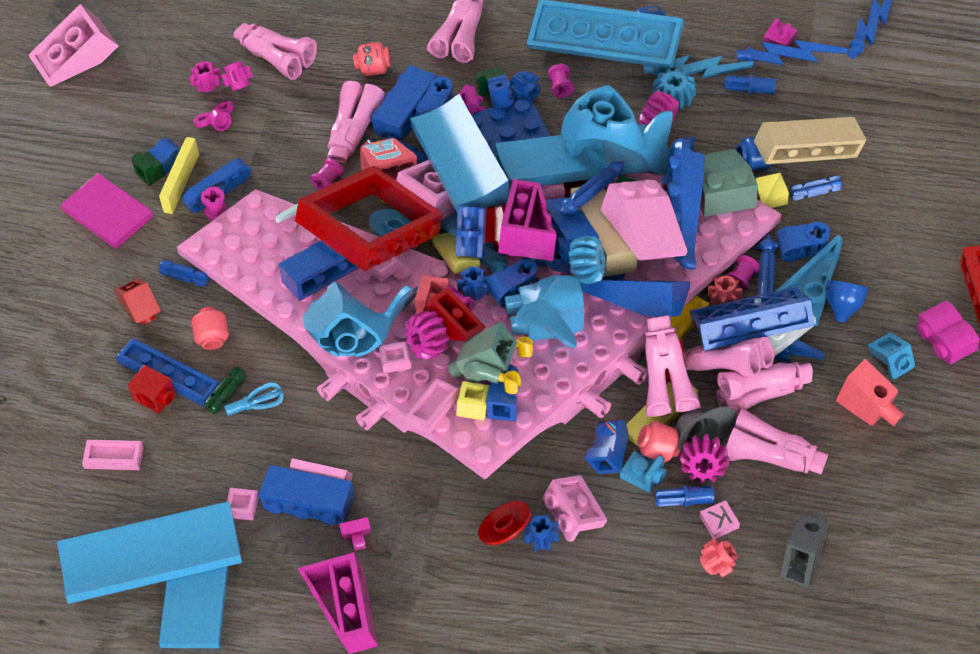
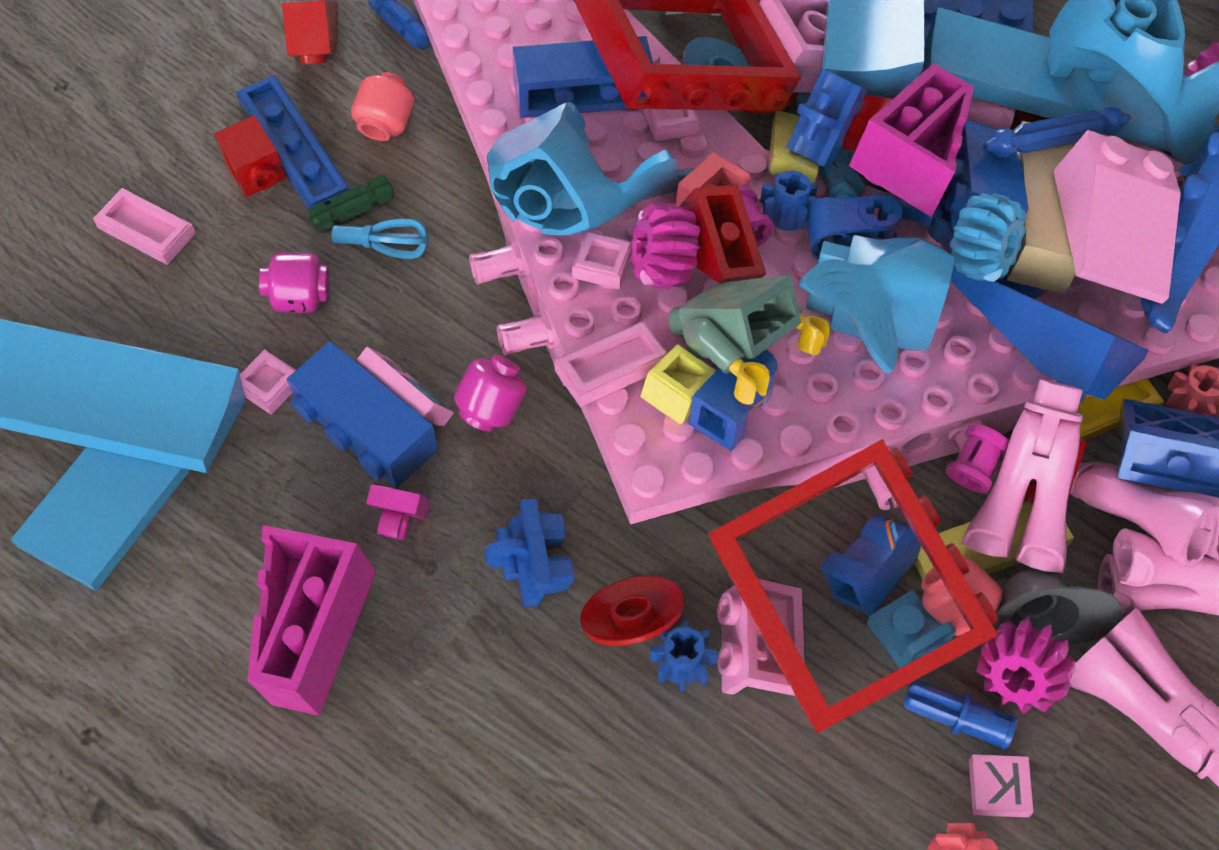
camera: 25 degrees right, 5 degrees up
(224, 445) = (295, 282): none -> dark pink head
(370, 453) = (490, 393): none -> dark pink head
(435, 521) = (523, 553): none -> blue hips
(579, 495) = (922, 520): none -> red window
(635, 371) = (978, 458): none -> dark pink bush

